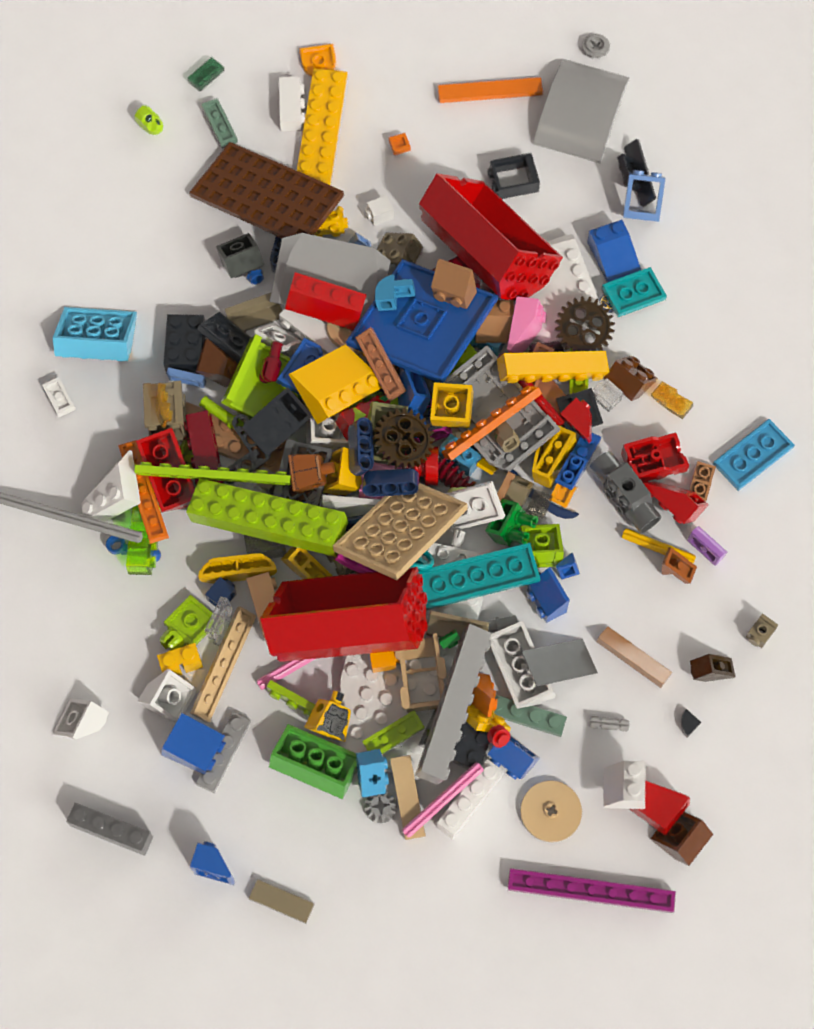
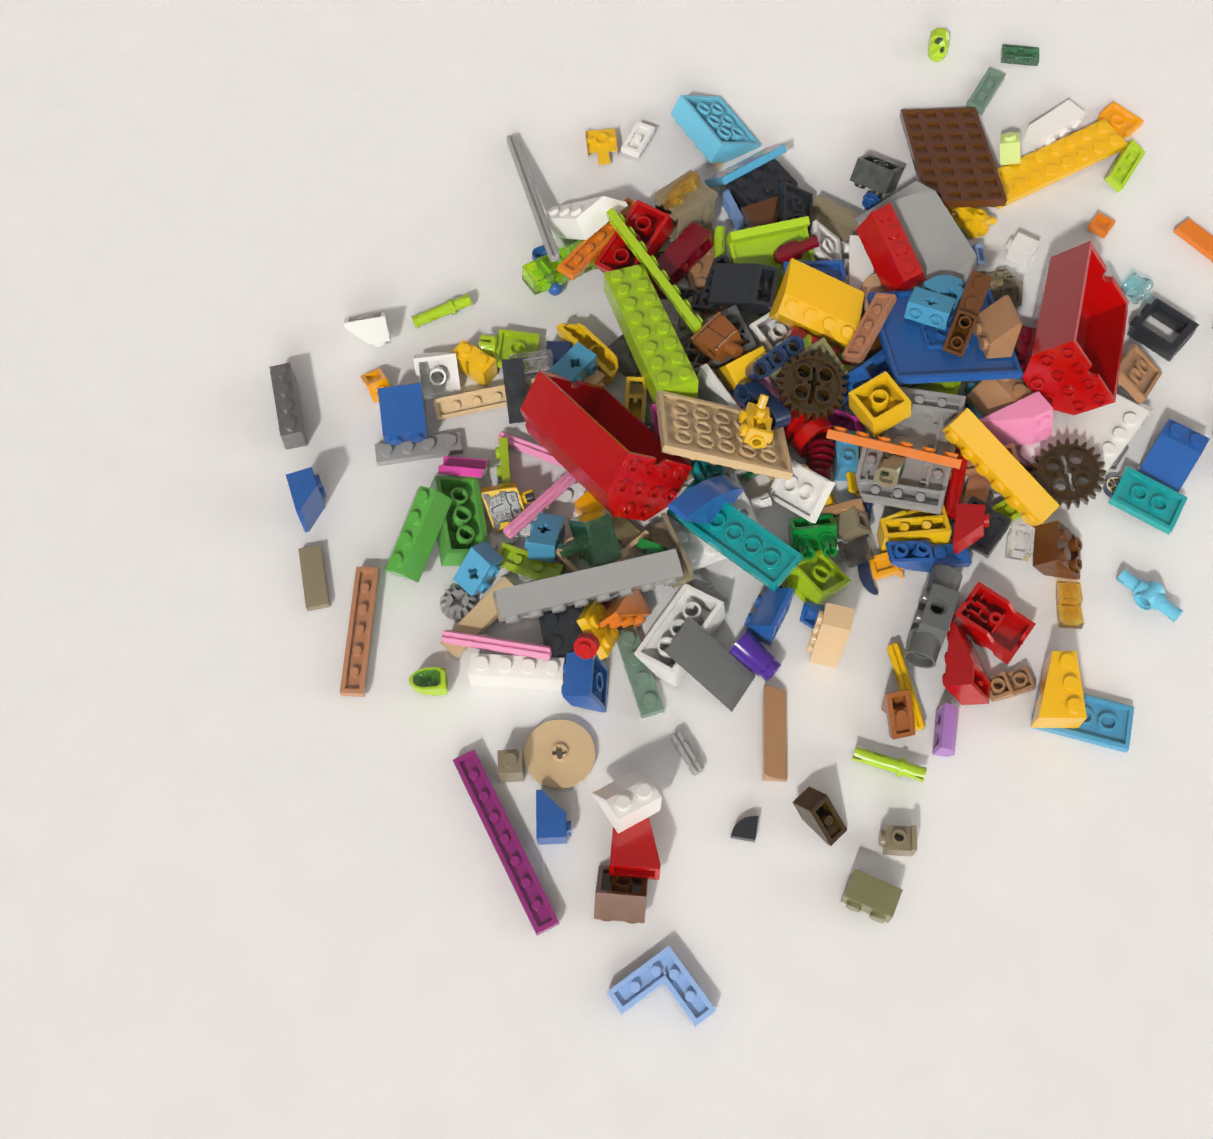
camera: 55 degrees right, 5 degrees down
(39, 425) = (602, 143): none -> yellow piece
(109, 647) = (442, 310): none -> lime pin
(139, 747) = (374, 380): none -> light orange bracket
(154, 339) = (745, 166): none -> dark azure tile
(234, 646) = (514, 387): none -> black tile
(250, 601) = (576, 364): none -> dark azure brick
(270, 728) = (464, 466): none -> dark pink slope
(290, 150) = (1010, 148): none -> yellowish green slope
(309, 800) = (418, 534): none -> bright green slope
(350, 695) = (539, 505): none -> bright pink axle
(354, 893) = (360, 632): none -> nougat plate
(362, 88) = (1124, 166): none -> lime plate
(385, 707) = (545, 536): none -> dark azure brick
(398, 313) = (930, 308): none -> dark azure brick
(411, 499) = (756, 423): none -> yellow brick
(420, 675) = (592, 539): none -> clear green brick
(425, 295) = (966, 313): none -> reddish brown slope
(434, 866) = (430, 681): none -> rock
(448, 575) = (706, 499): none -> blue slope
(469, 164) = (1138, 288): none -> clear light blue piece
(540, 219) = (1138, 373): none -> medium nougat tile
(540, 850) = (510, 765): none -> dark tan brick
(571, 628) = (755, 656): none -> dark purple plant
(598, 849) = (550, 821): none -> blue slope
(601, 568) = (830, 634): none -> tan brick
(701, 346) = (1149, 595): none -> medium azure pin
(704, 599) = (889, 763): none -> lime pin
(733, 455) = (1060, 693): none -> yellow wedge
(751, 843) = (667, 970): none -> light blue plate
(787, 676) = (871, 896): none -> olive brick

